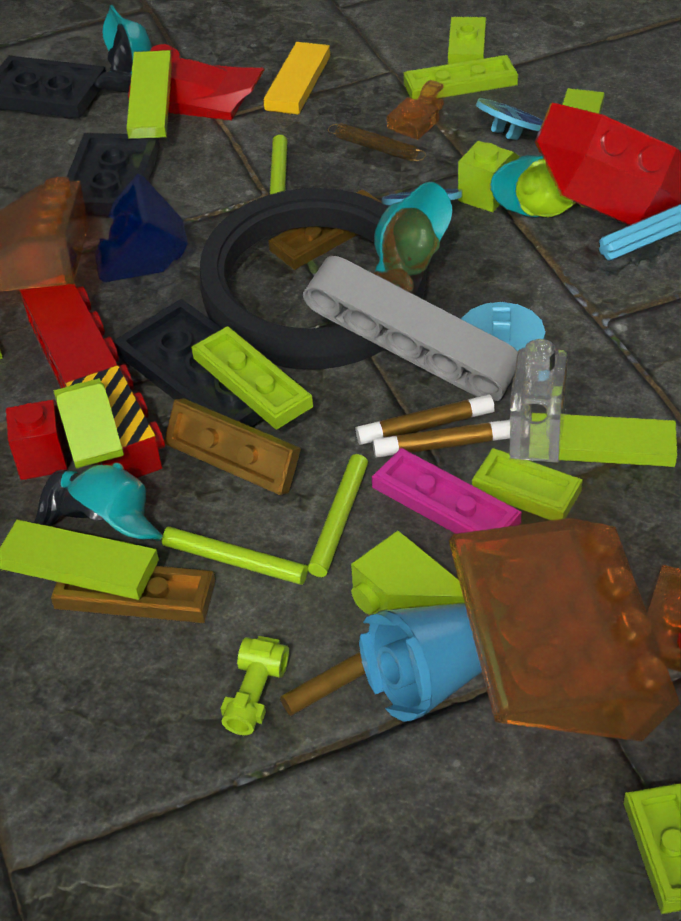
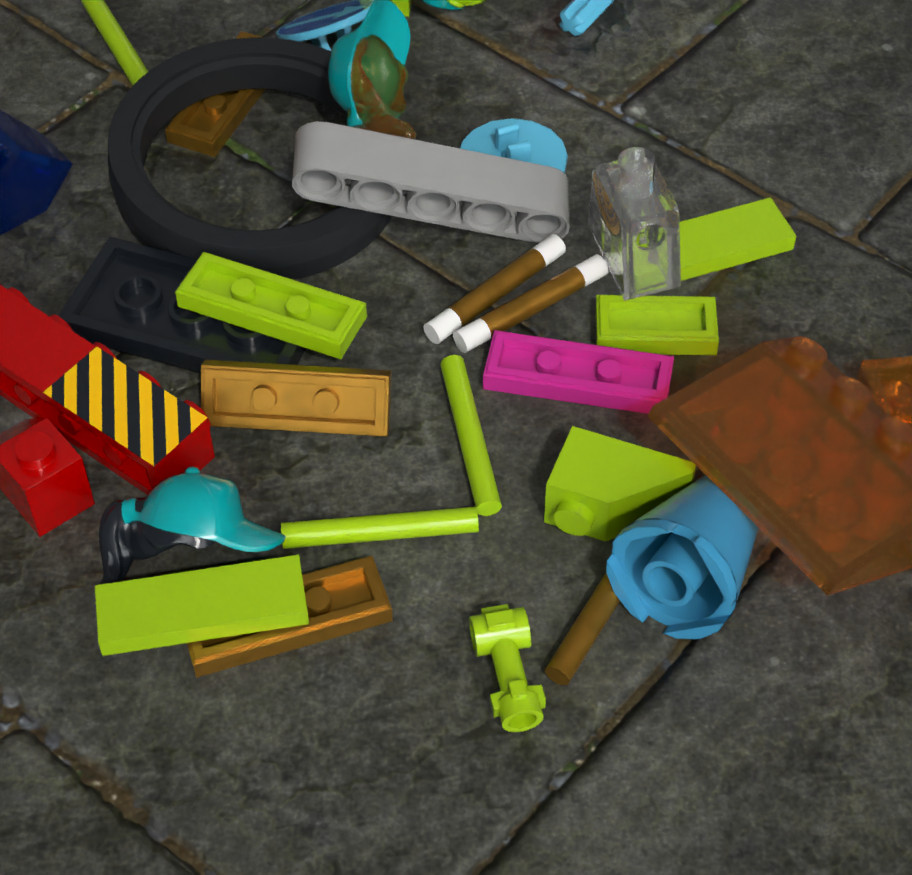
camera: 30 degrees left, 5 degrees up
(88, 423) = (117, 428): lime slope -> none

